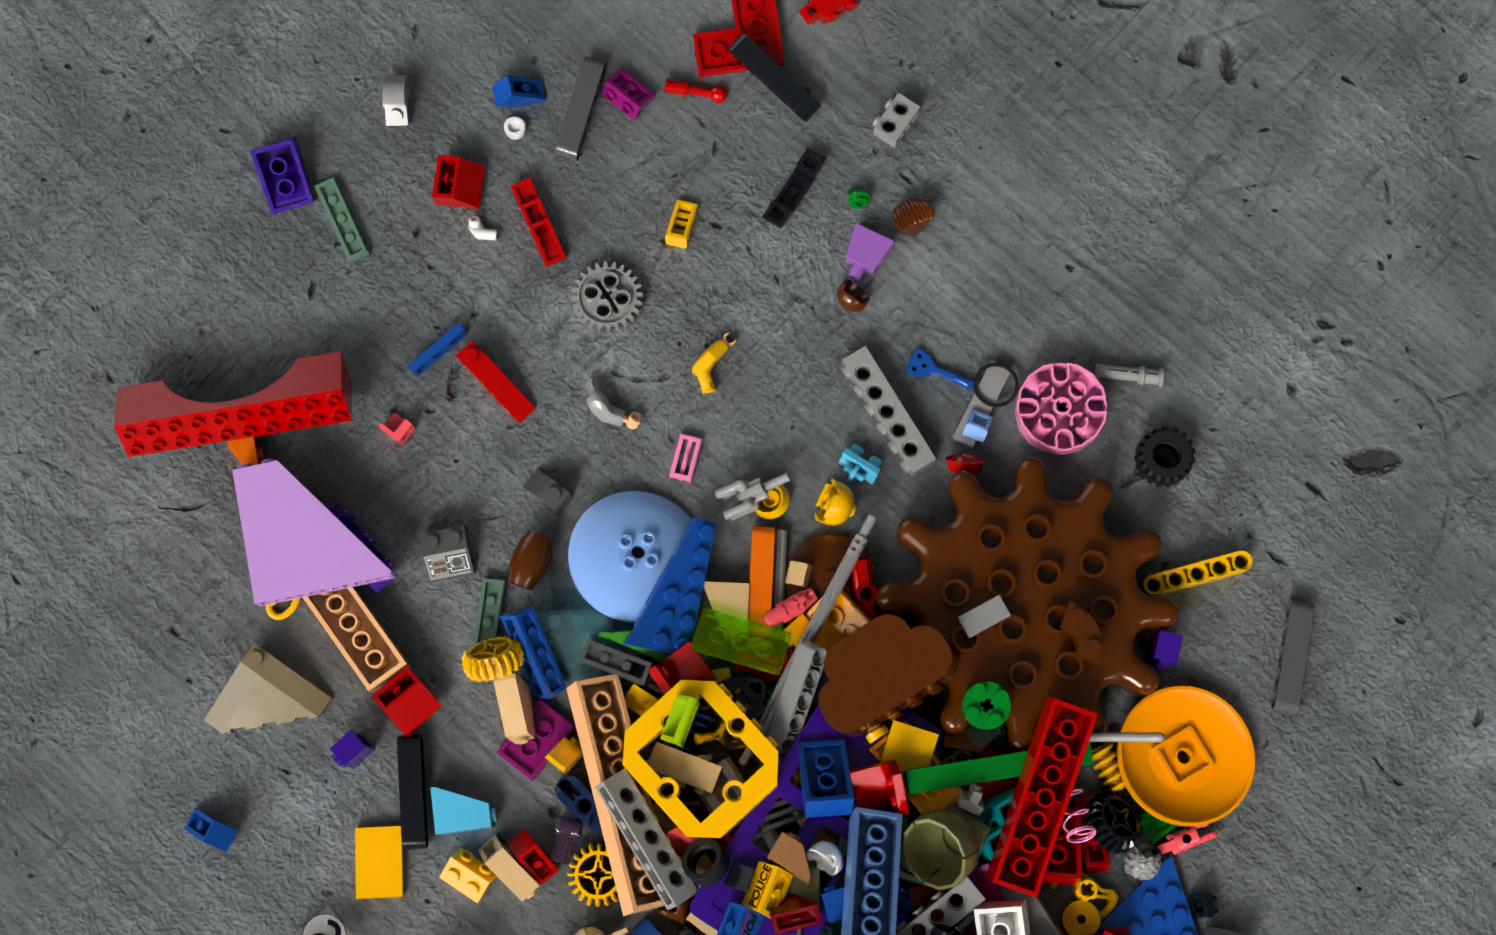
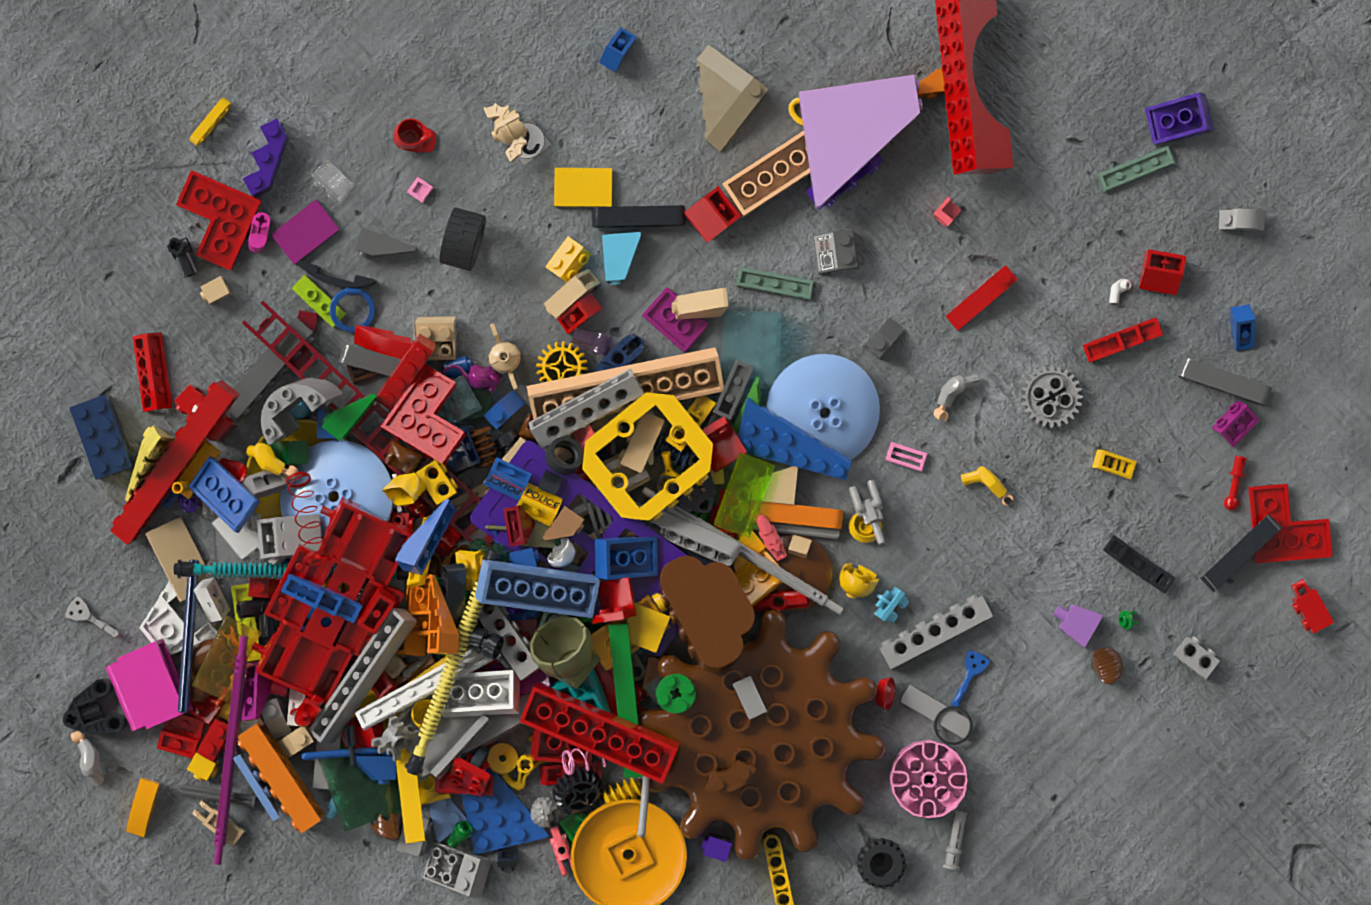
camera: 90 degrees right, 10 degrees up
(351, 750) = (675, 167): dark purple brick -> none
(437, 350) = (1013, 249): blue tile -> none
(492, 659) = (742, 287): yellow gear -> none
(515, 127) = (1211, 322): white tile -> none
(529, 560) = (825, 321): reddish brown piece -> none
(536, 653) = (745, 322): blue fence -> none
(565, 754) = (660, 344): yellow slope -> none
(680, 720) = (678, 441): lime tile -> none
(851, 296) = (1038, 608): reddish brown hair -> none
(971, 799) = (601, 675): light grey tile -> none
(977, 425) = (918, 707): light blue slope -> none

